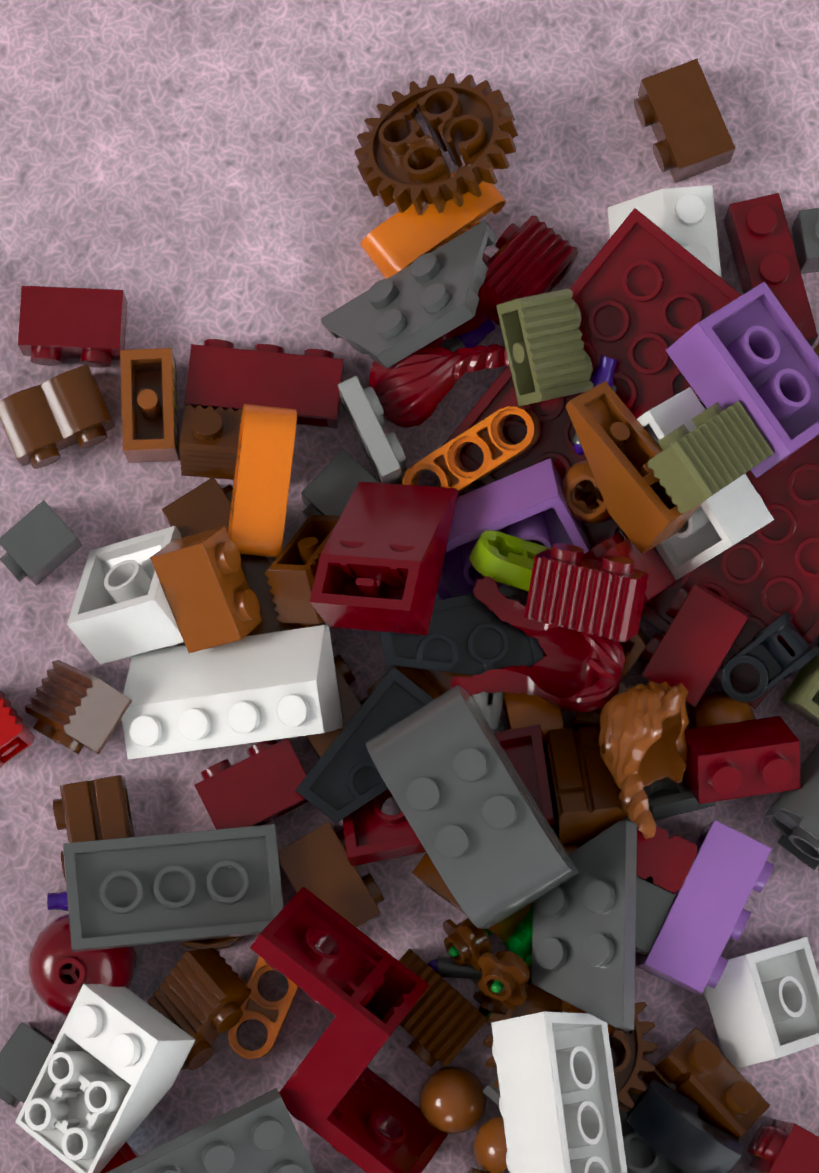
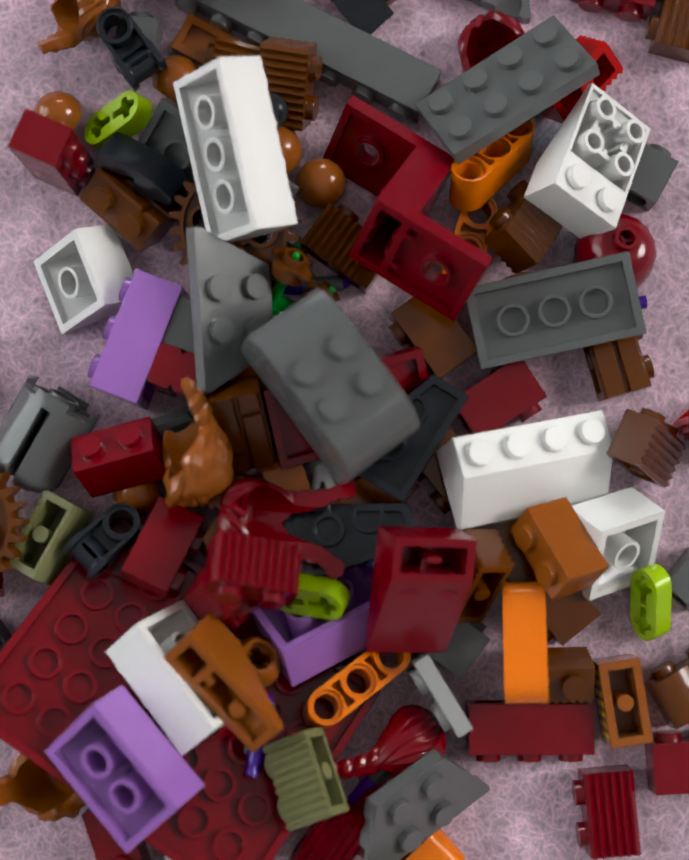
camera: 175 degrees right, 5 degrees up
(96, 519) = (650, 602): none -> lime beam
(181, 278) = (608, 811): none -> dark red brick
(234, 1077) = (490, 169): none -> orange beam
(710, 456) = (159, 694): olive brick -> none

